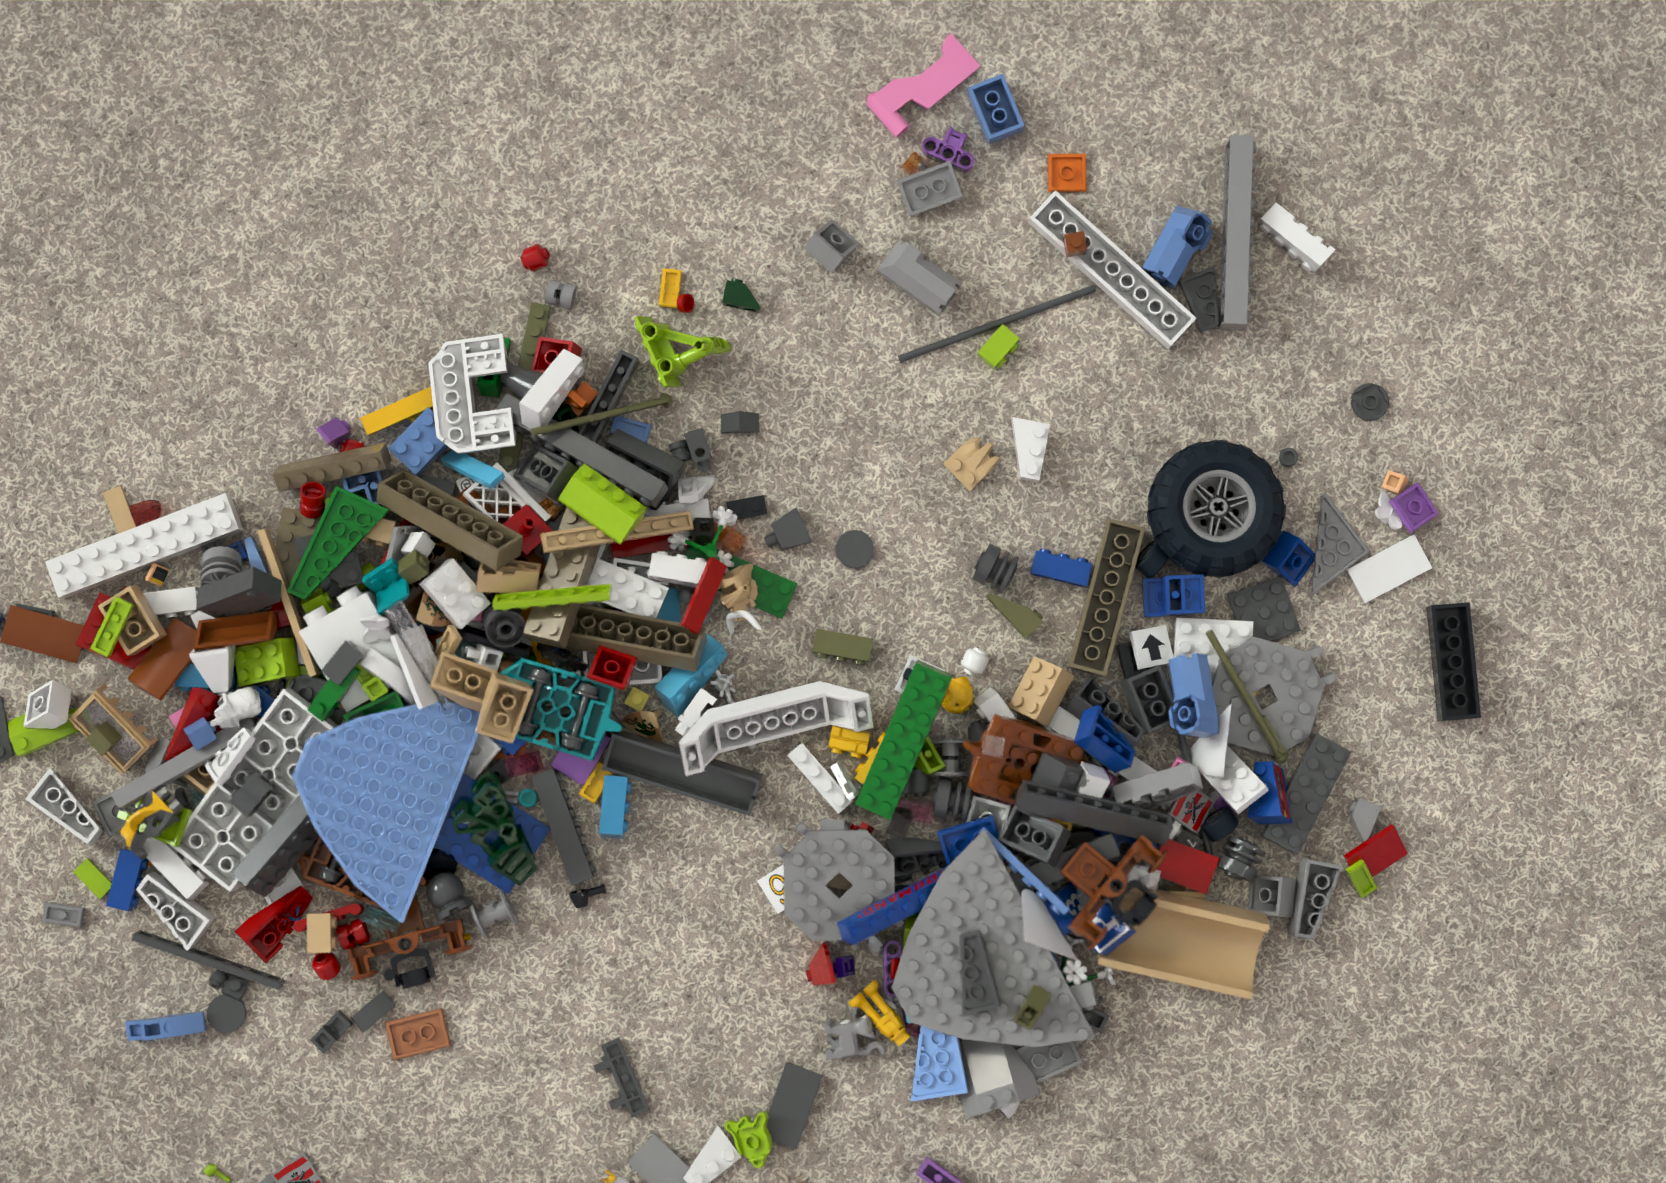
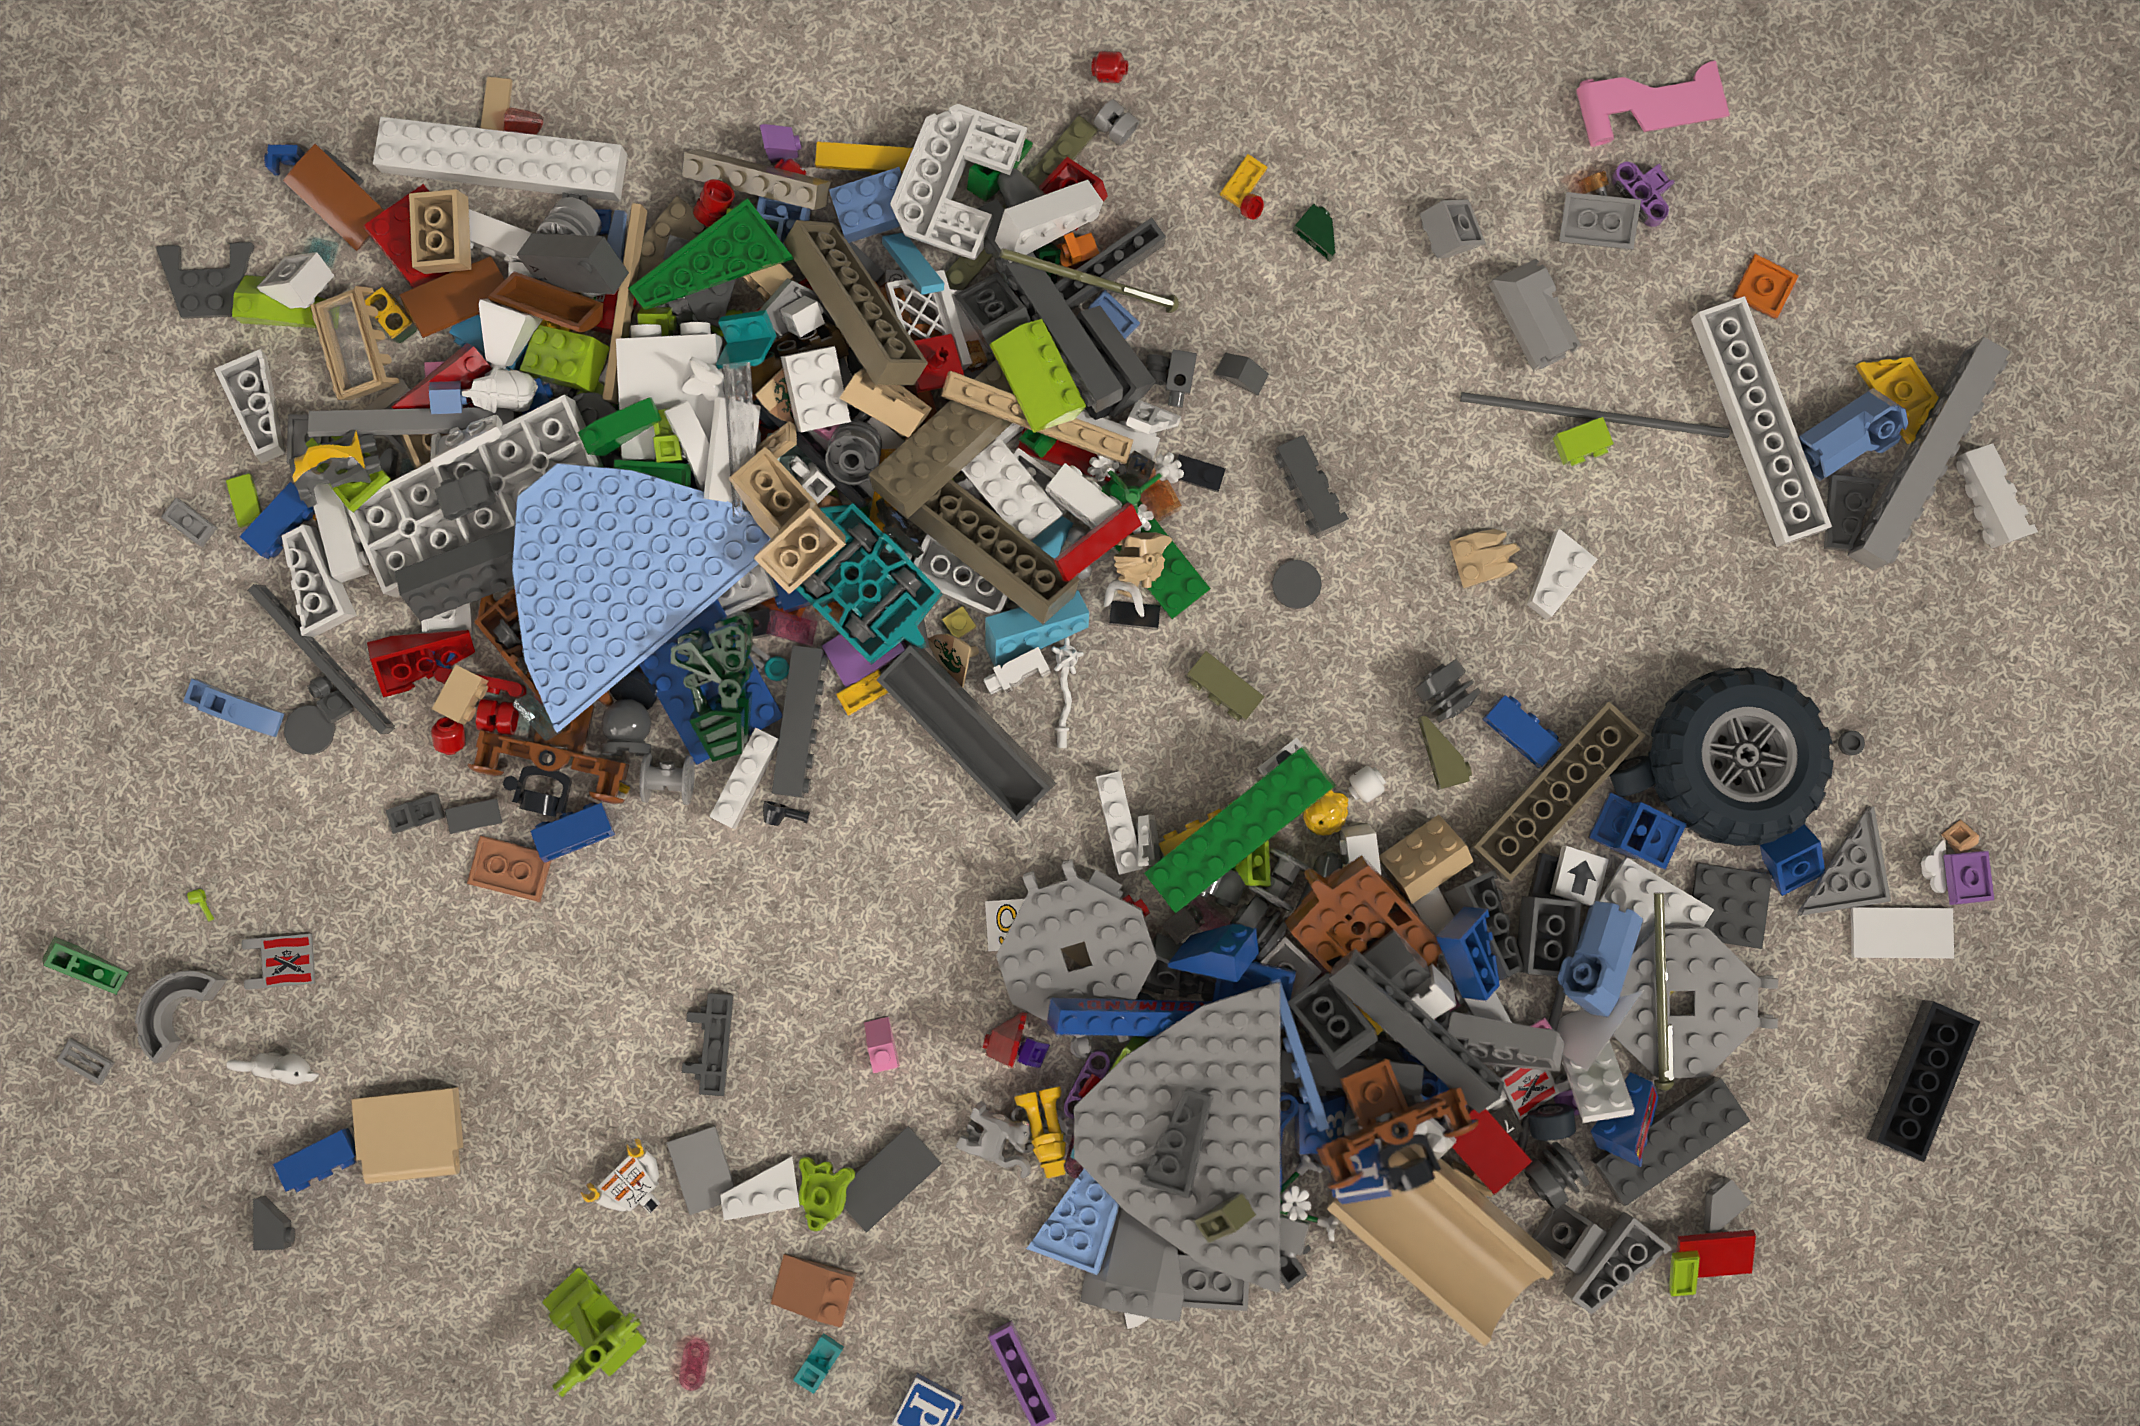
camera: 30 degrees right, 0 degrees up
(54, 673) = (326, 250): none -> clear light blue tile
(103, 737) = (336, 346): olive brick -> none
(112, 626) = (411, 224): lime plate -> none
(143, 696) = (407, 328): none -> yellow piece
(157, 574) = (497, 198): slope -> none
(342, 662) = (645, 398): dark grey panel -> none
(413, 566) = (785, 333): olive brick -> none
(447, 985) = (572, 832): none -> blue brick
(547, 885) = (745, 778): none -> white brick
(548, 597) = (917, 447): lime plate -> none
(612, 668) = (949, 569): red slope -> none
(614, 807) = (868, 730): dark azure wedge -> none
(626, 547) = (1037, 442): none -> green slope
(663, 356) = (1196, 256): lime plate -> none
(738, 1017) = (881, 1045): none -> bright pink slope
(747, 633) = (1125, 615): none -> black slope
(772, 718) = (1100, 725): white slope -> none
(788, 531) = (1232, 524): dark grey torso -> none
(828, 477) = (1310, 487): none -> dark grey wedge
(848, 740) = (1175, 798): yellow brick -> none
(933, 831) = (1218, 952): none -> blue slope
(993, 745) = (1341, 891): clear tile -> none
(995, 109) = (1722, 170): medium blue brick -> none
(1040, 927) = (1284, 1130): white sticker -> none
(1075, 244) = (1737, 367): dark orange brick -> none
(1196, 194) = (1904, 385): none -> yellow wing
(1364, 401) = (1971, 732): dark grey tile -> none

